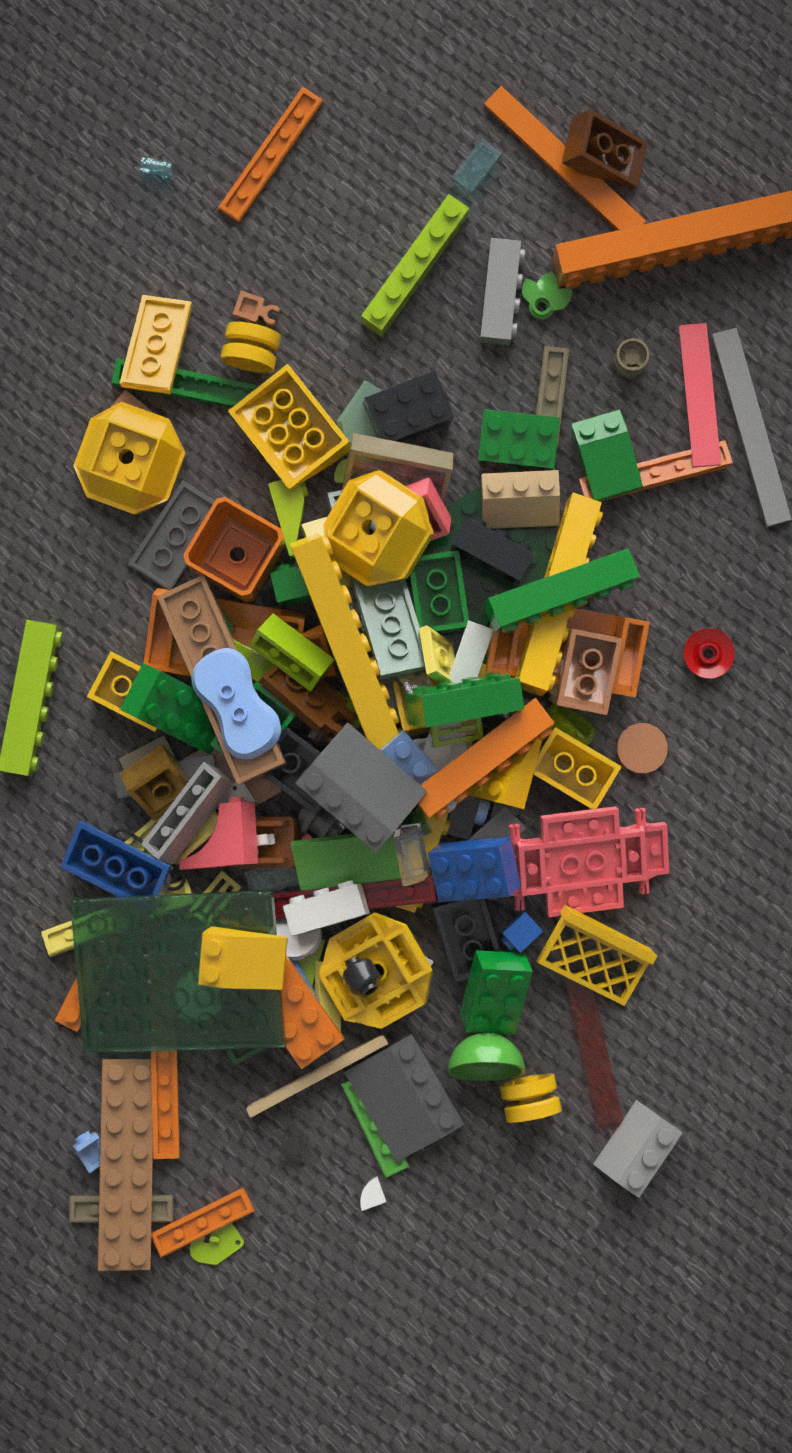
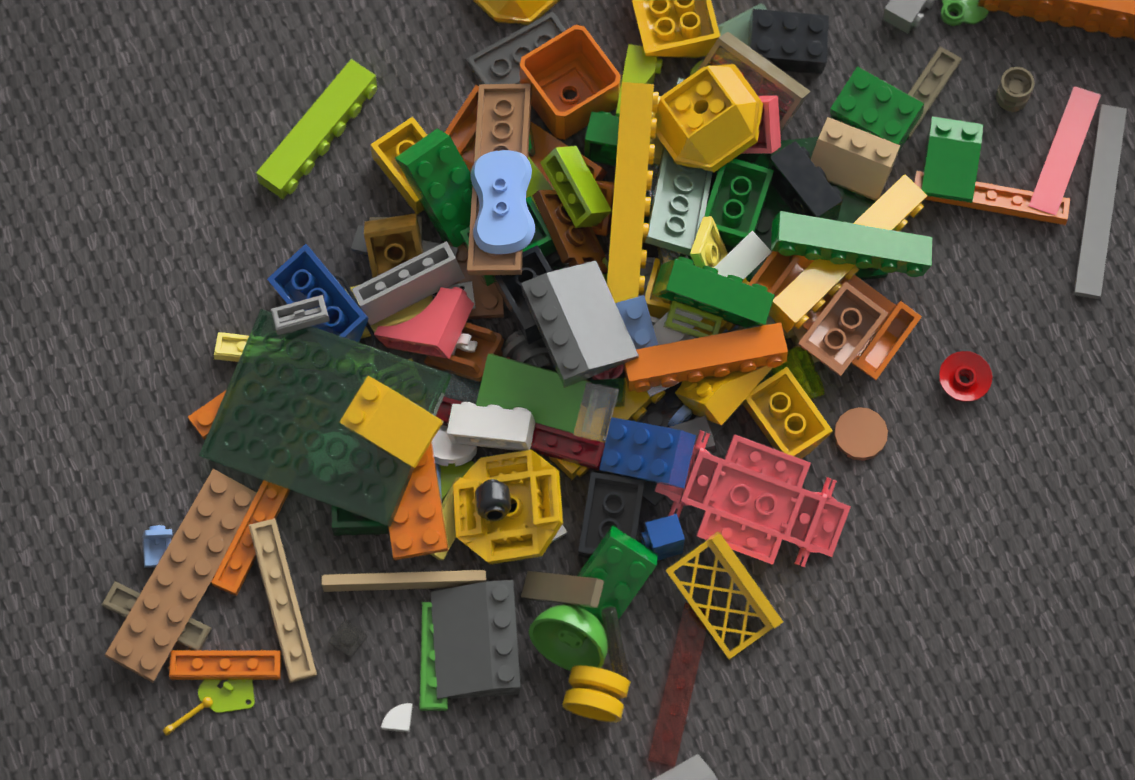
camera: 25 degrees right, 15 degrees down
(126, 878) = (300, 318): none -> light grey tile
(203, 1261) = (206, 702): none -> yellow hinge
(222, 1143) = (282, 600): none -> tan tile
(459, 1025) = (562, 589): none -> dark tan tile
(525, 1047) = (614, 641): none -> clear smoke axle

